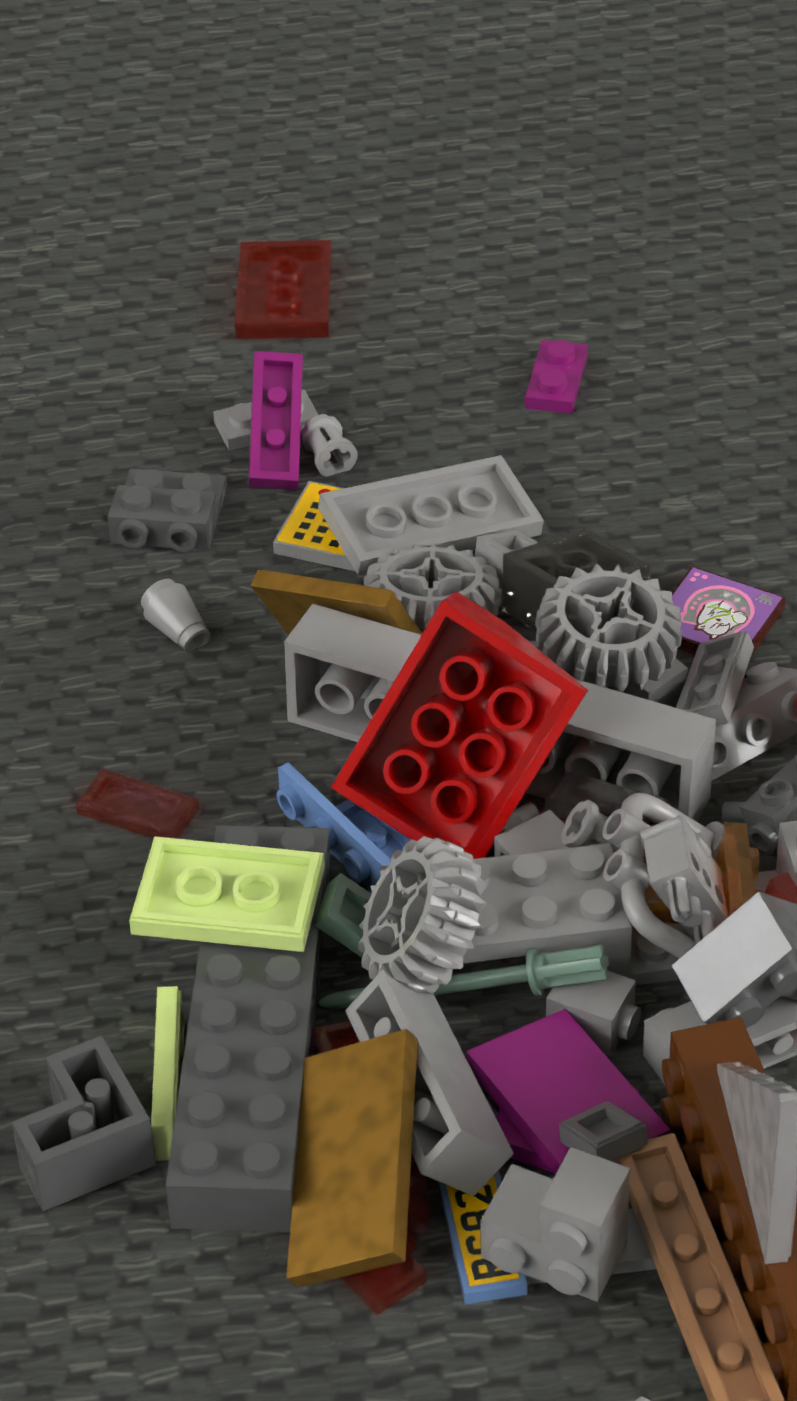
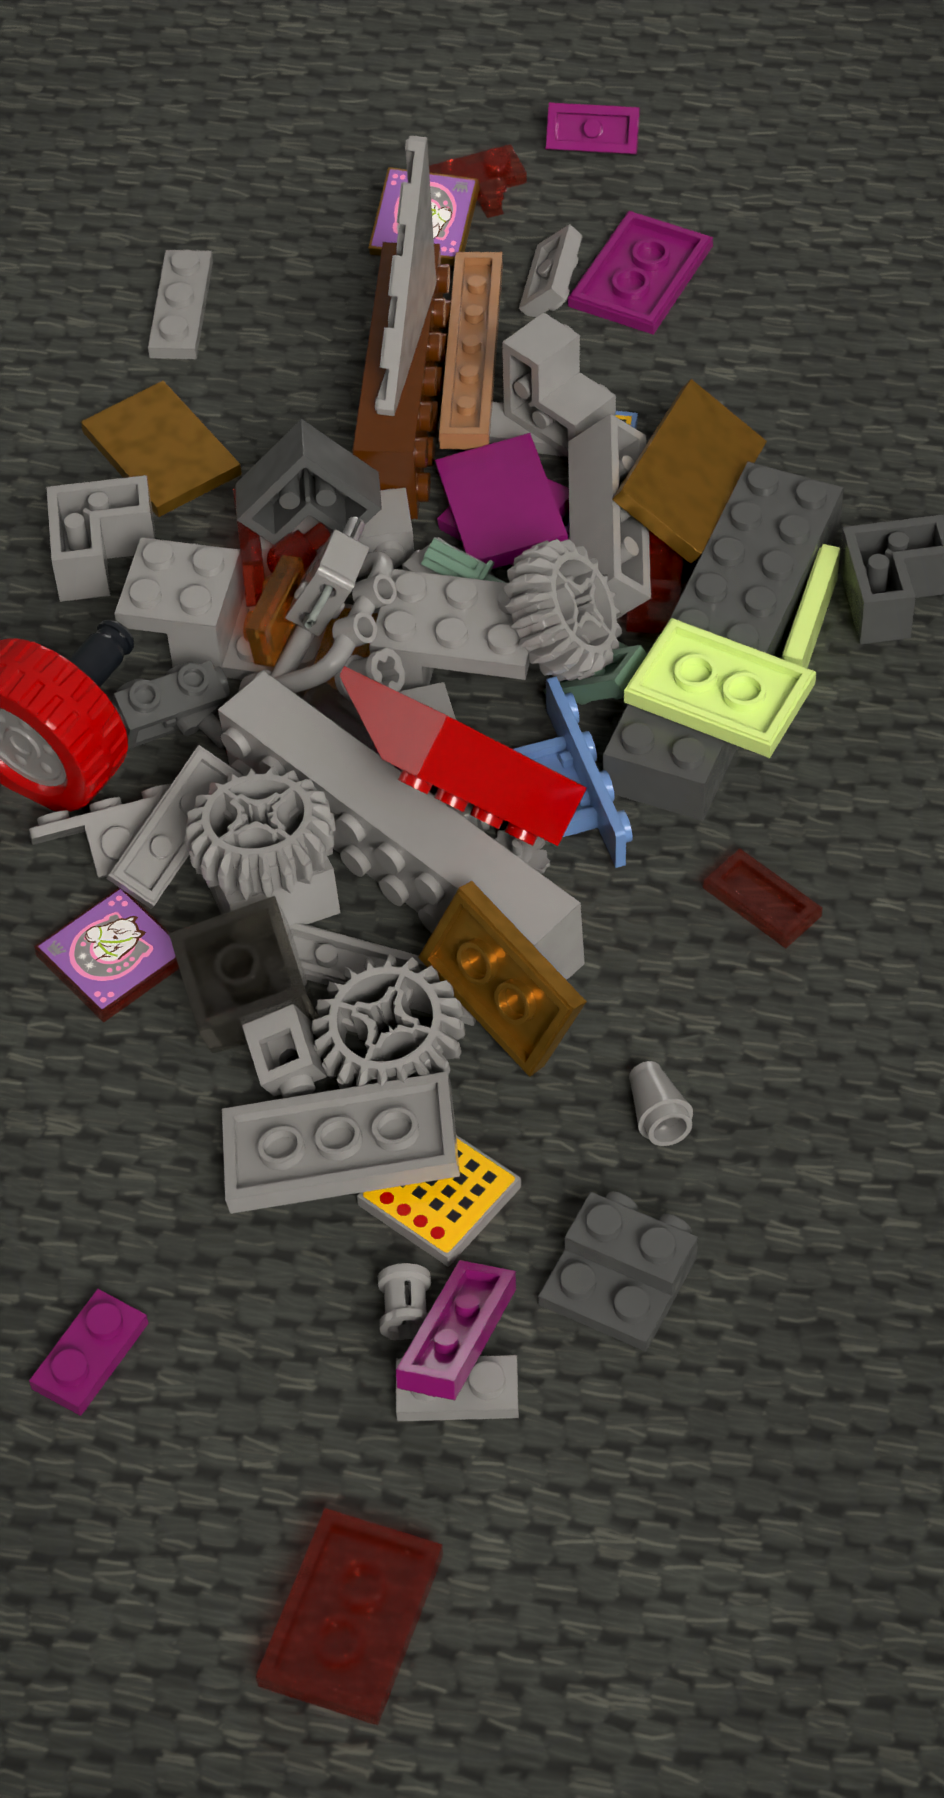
camera: 160 degrees left, 10 degrees up
(604, 1132) = (494, 438): dark grey tile -> none

